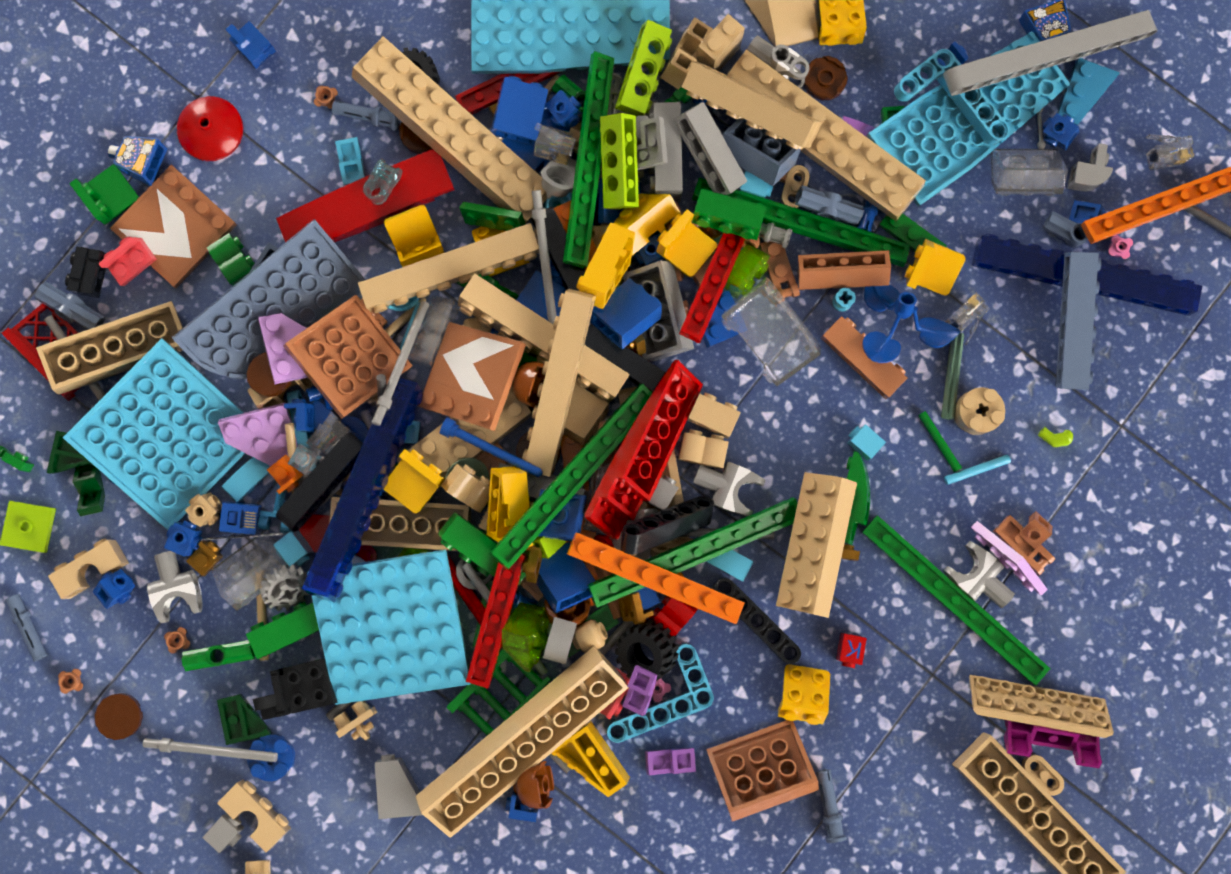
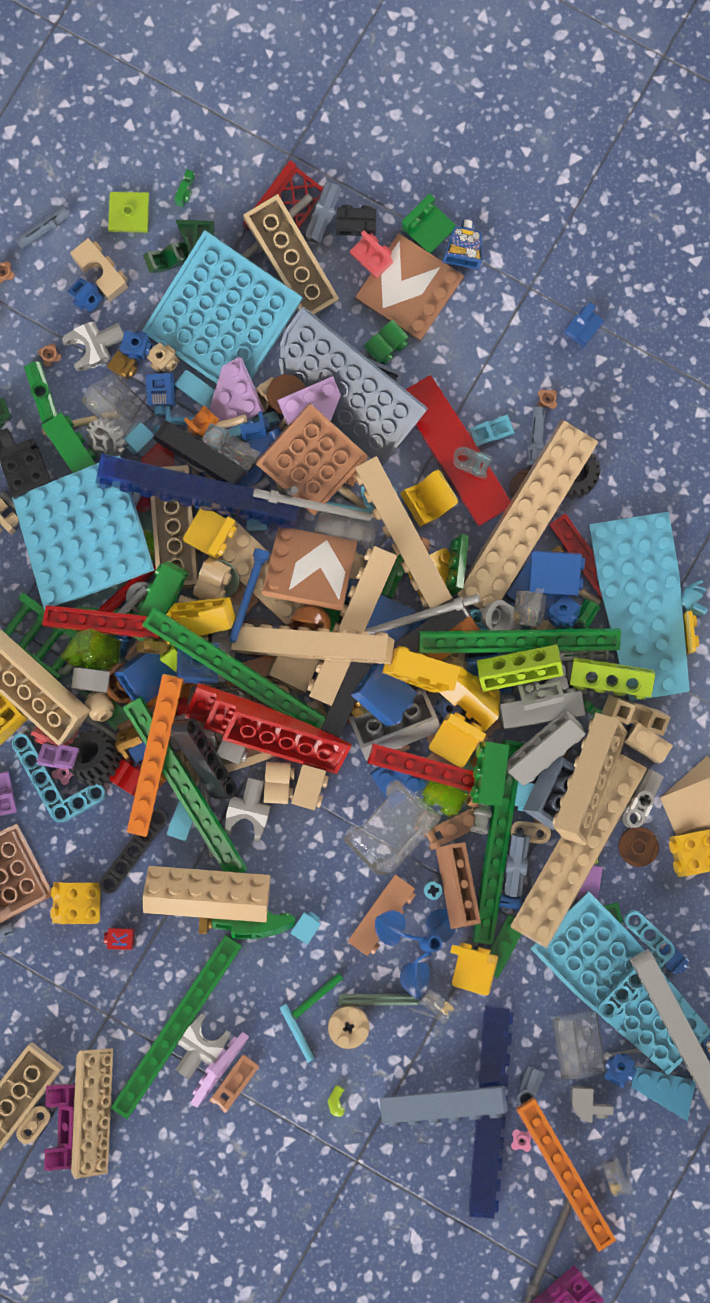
camera: 85 degrees right, 0 degrees up
(217, 138) = (501, 315): red dish -> none
(241, 536) = (145, 397): black sticker -> none
(1036, 530) = (248, 1092): nougat bracket -> none
(1084, 211) = (547, 1102): blue bracket -> none

